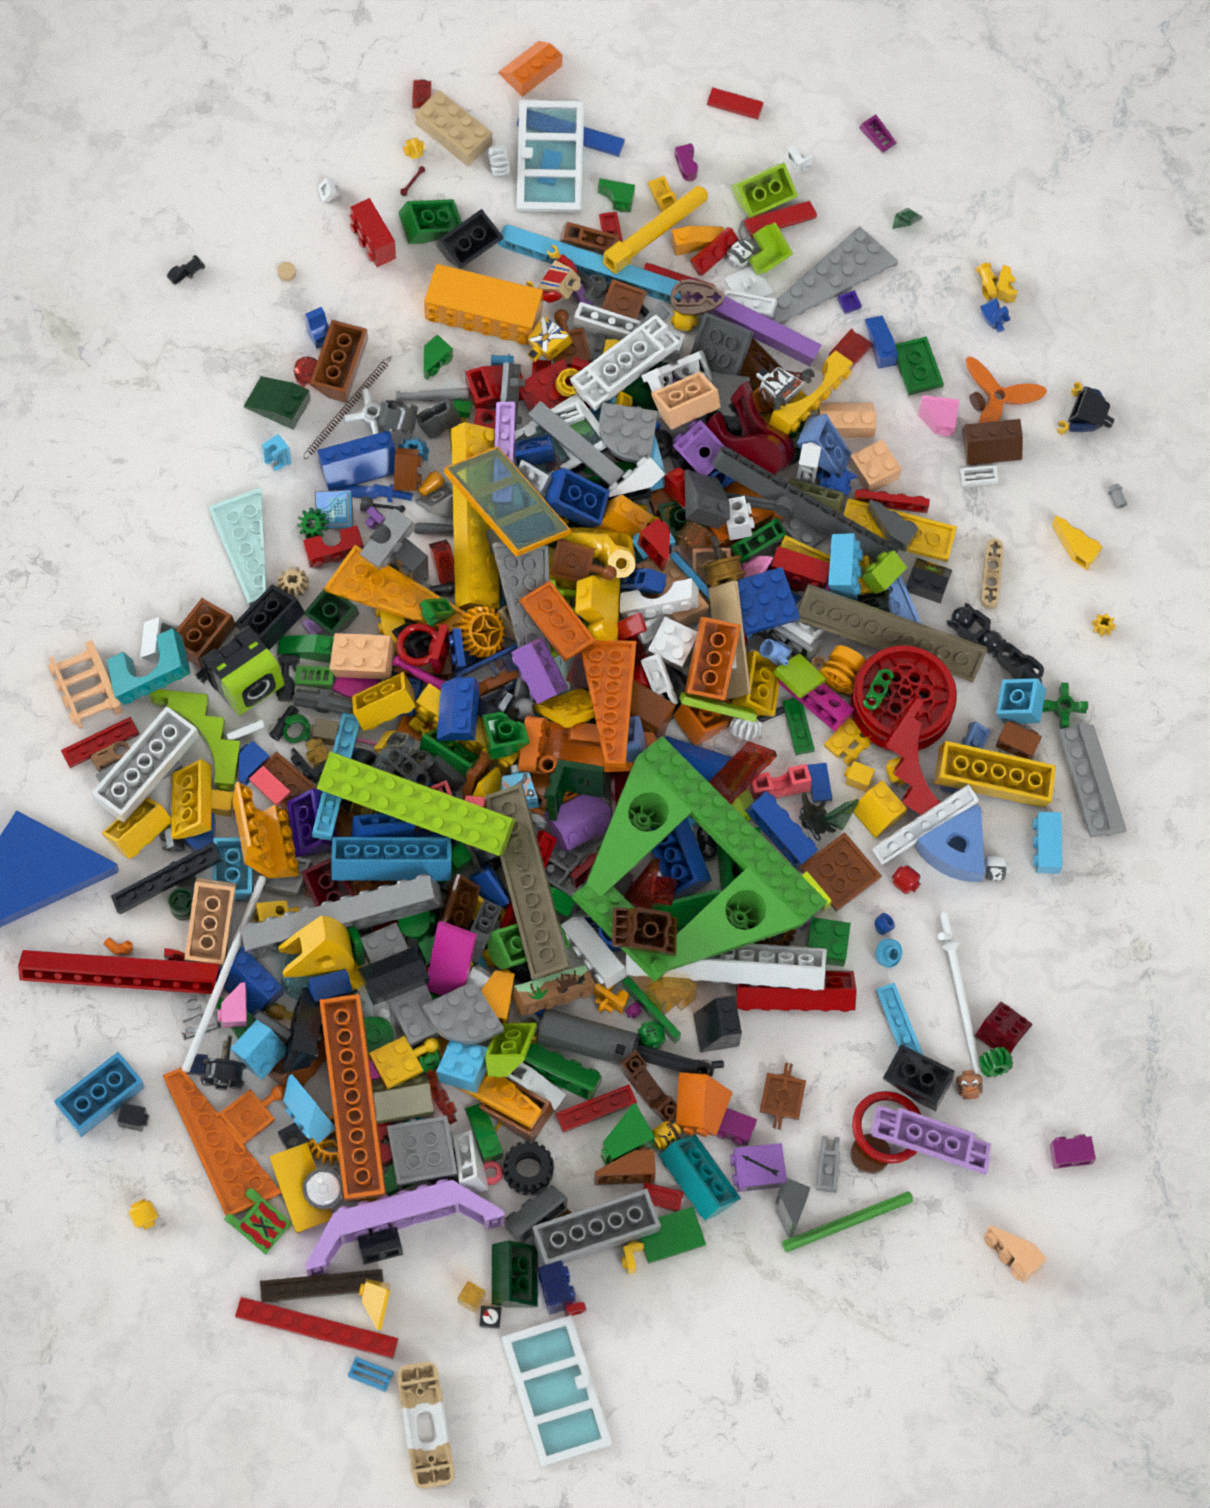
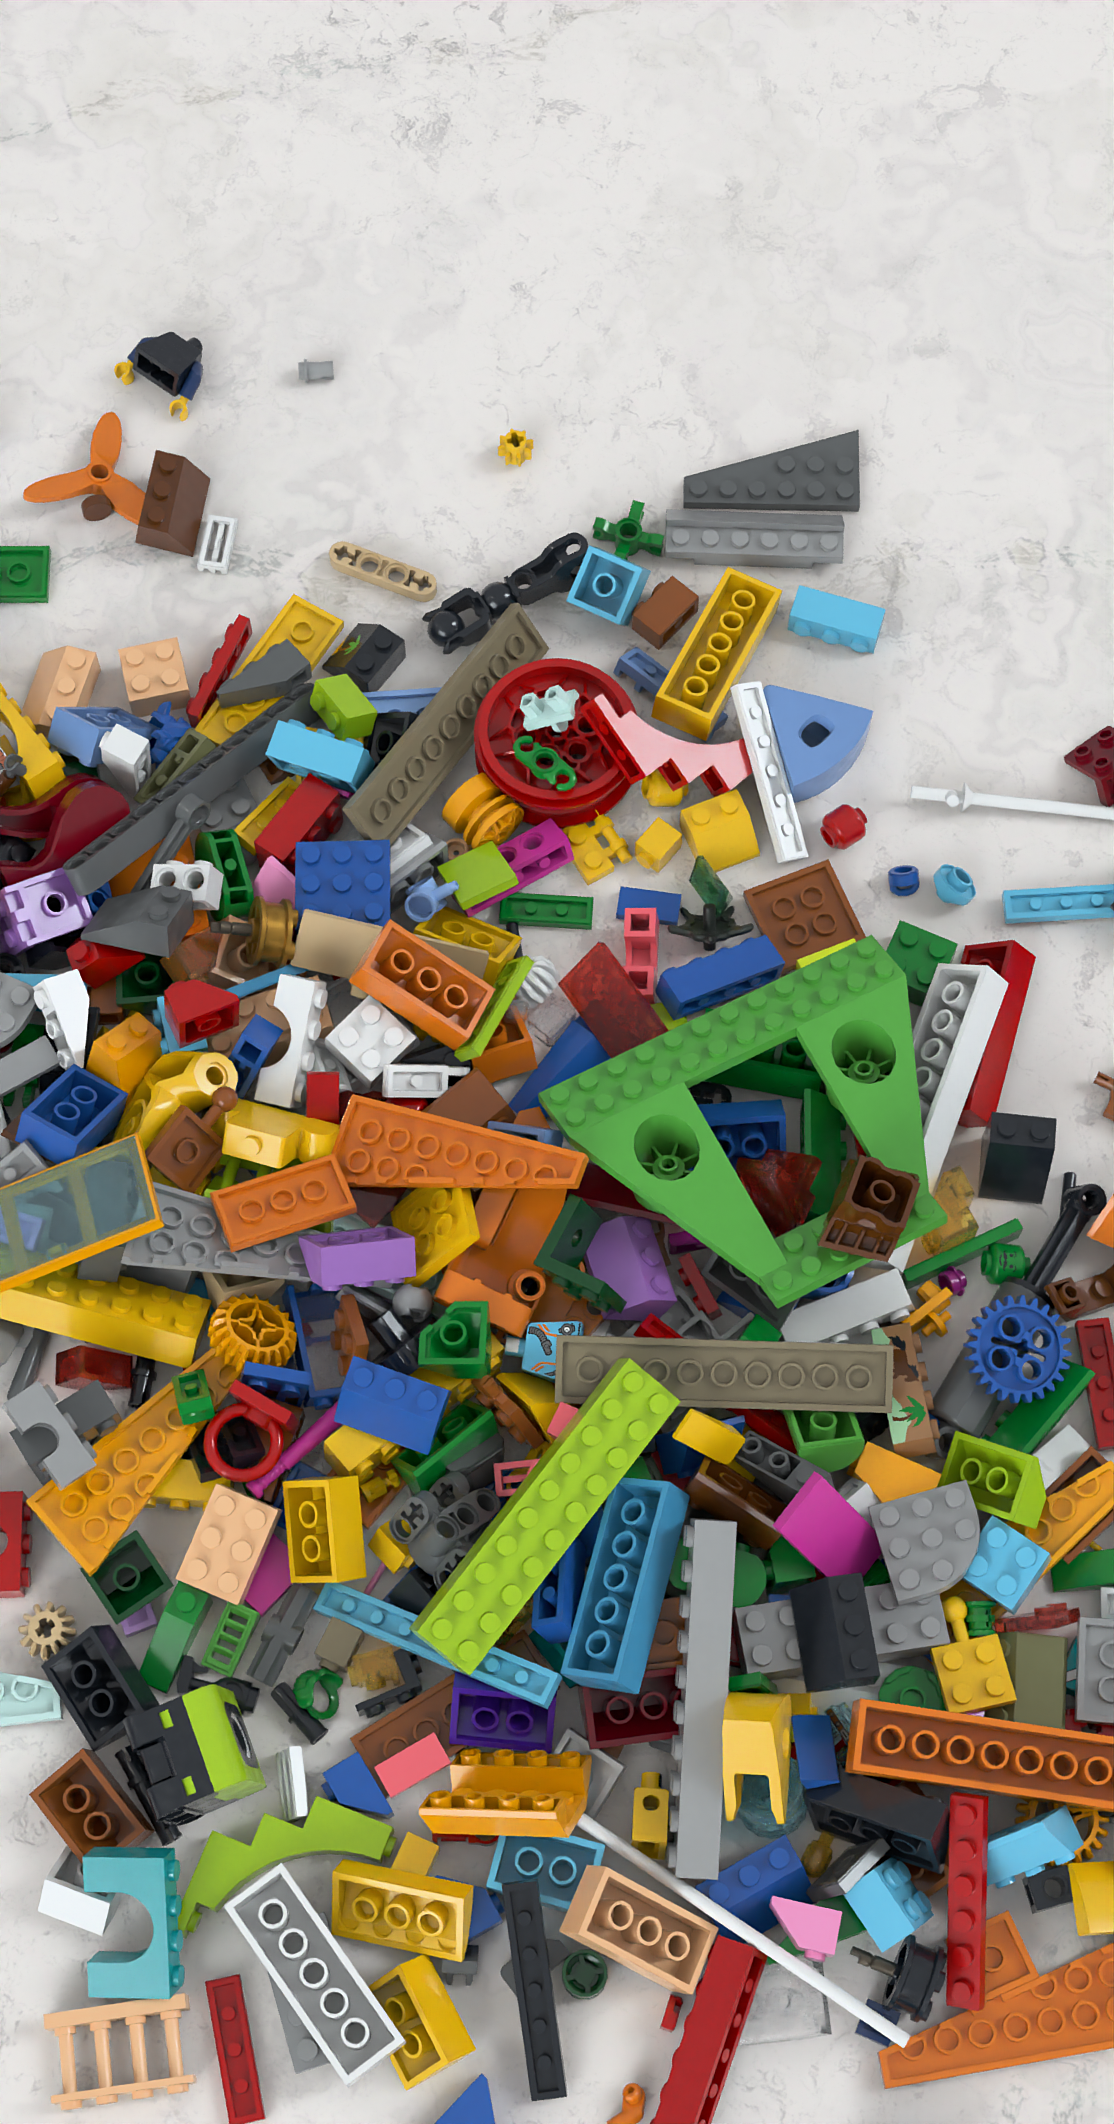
camera: 70 degrees left, 0 degrees up
(108, 755) = (266, 2039): medium nougat piece -> none
(270, 1087) = (967, 1901): none -> red plate
(488, 881) = (709, 1436): none -> yellow slope
(610, 1043) = (1009, 1377): none -> blue gear
(725, 722) = (517, 1010): none -> clear piece
(910, 679) = (552, 710): none -> light aqua hips
(939, 414) = (103, 561): bright pink slope -> none
(996, 868) = (860, 694): white head -> none
(1078, 545) = (375, 445): yellow slope -> none
(1143, 797) = (798, 478): none -> dark grey wing

